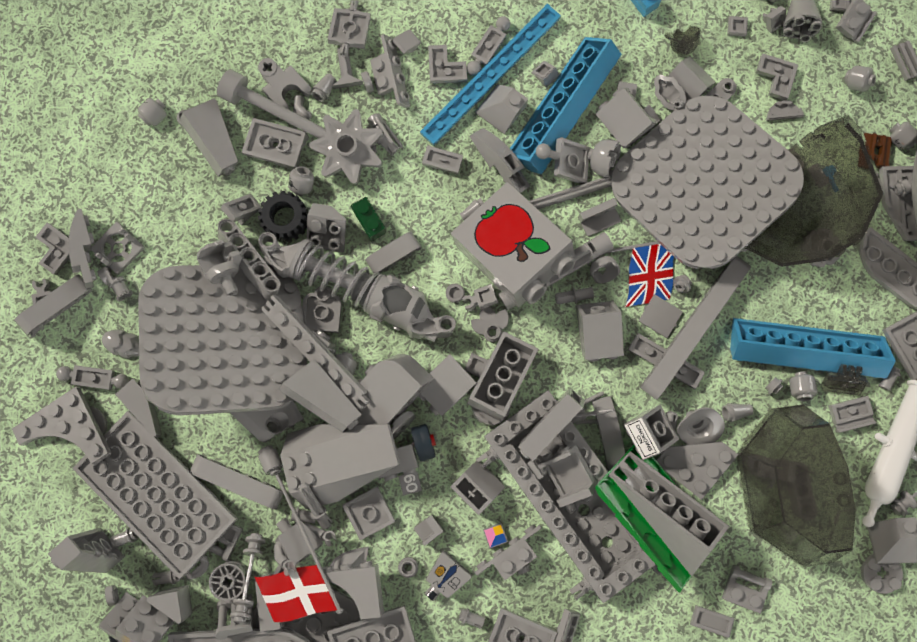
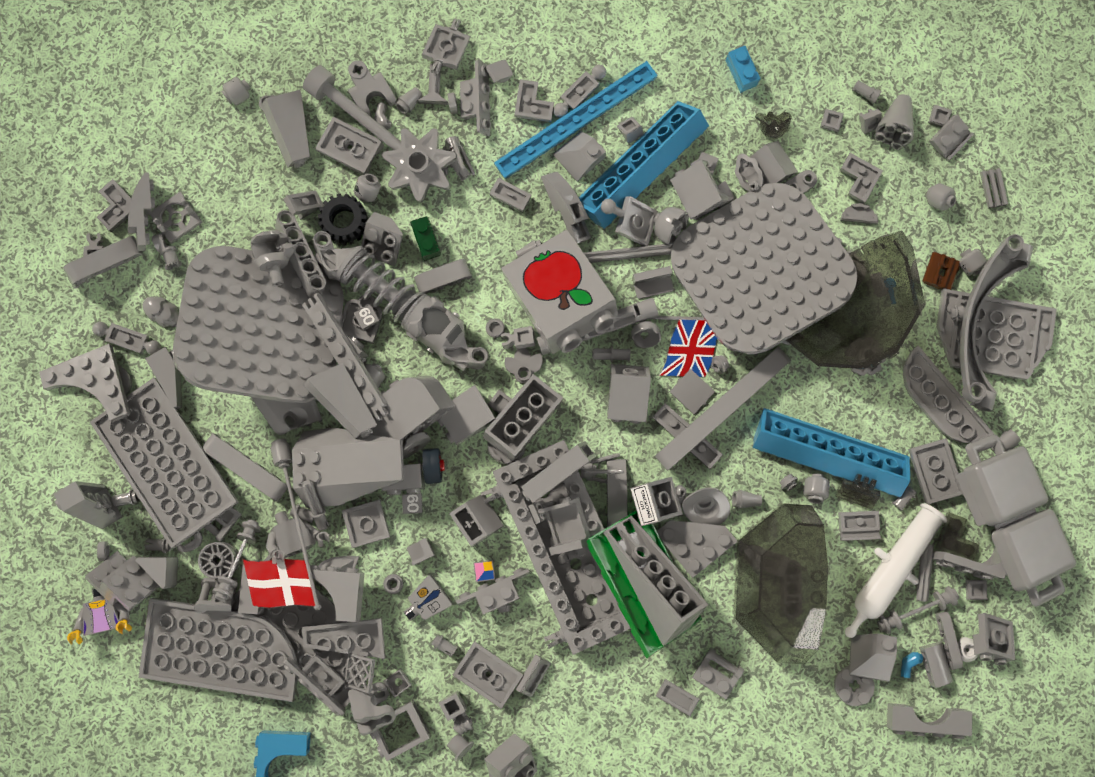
camera: 10 degrees right, 0 degrees up
(327, 308) = (366, 317): none -> light grey tile

